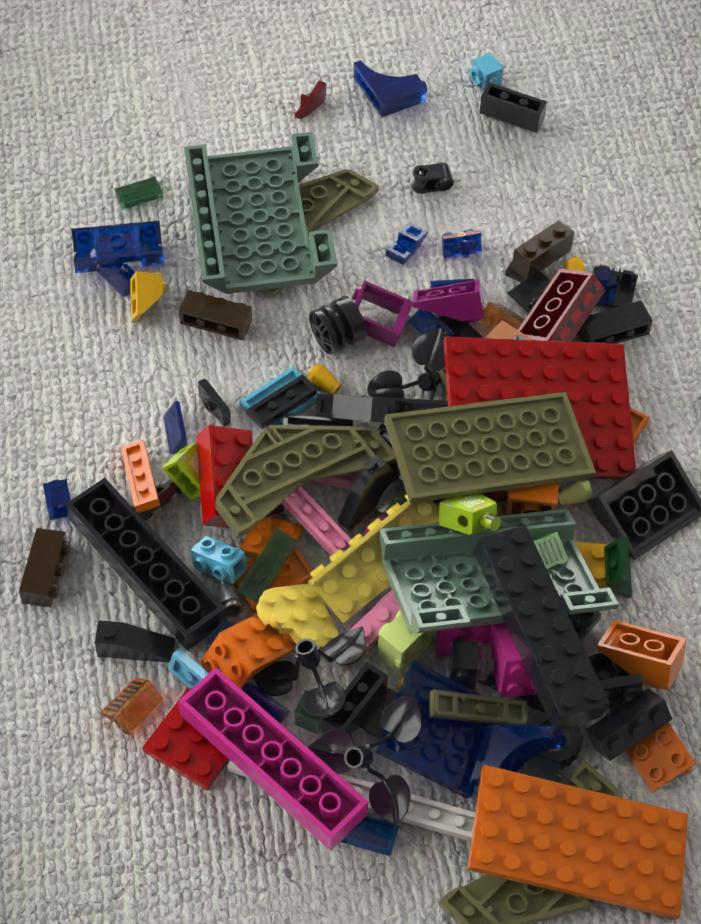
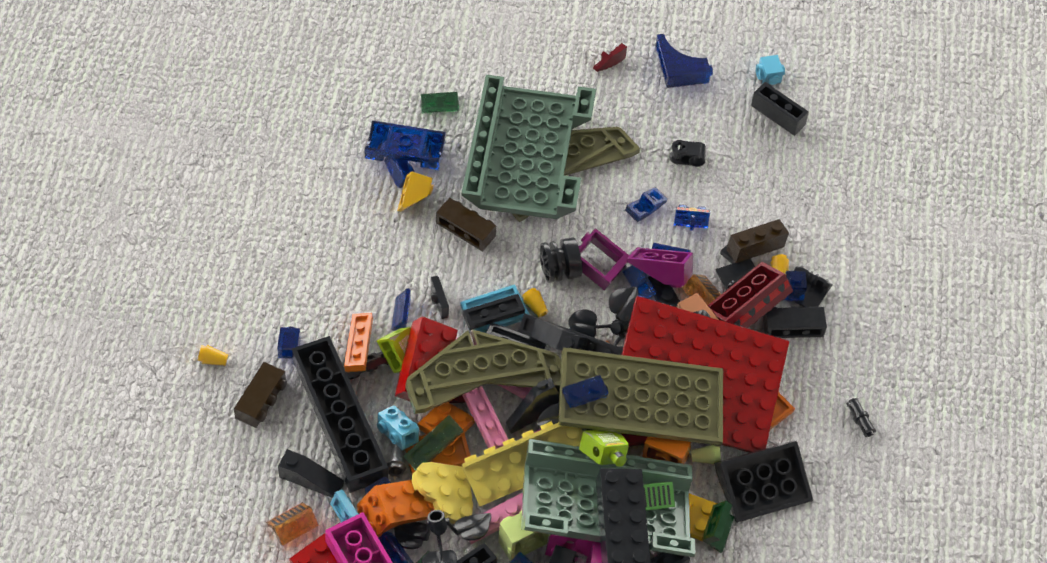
camera: 15 degrees right, 0 degrees up
(428, 457) = (585, 391): none -> clear blue plate

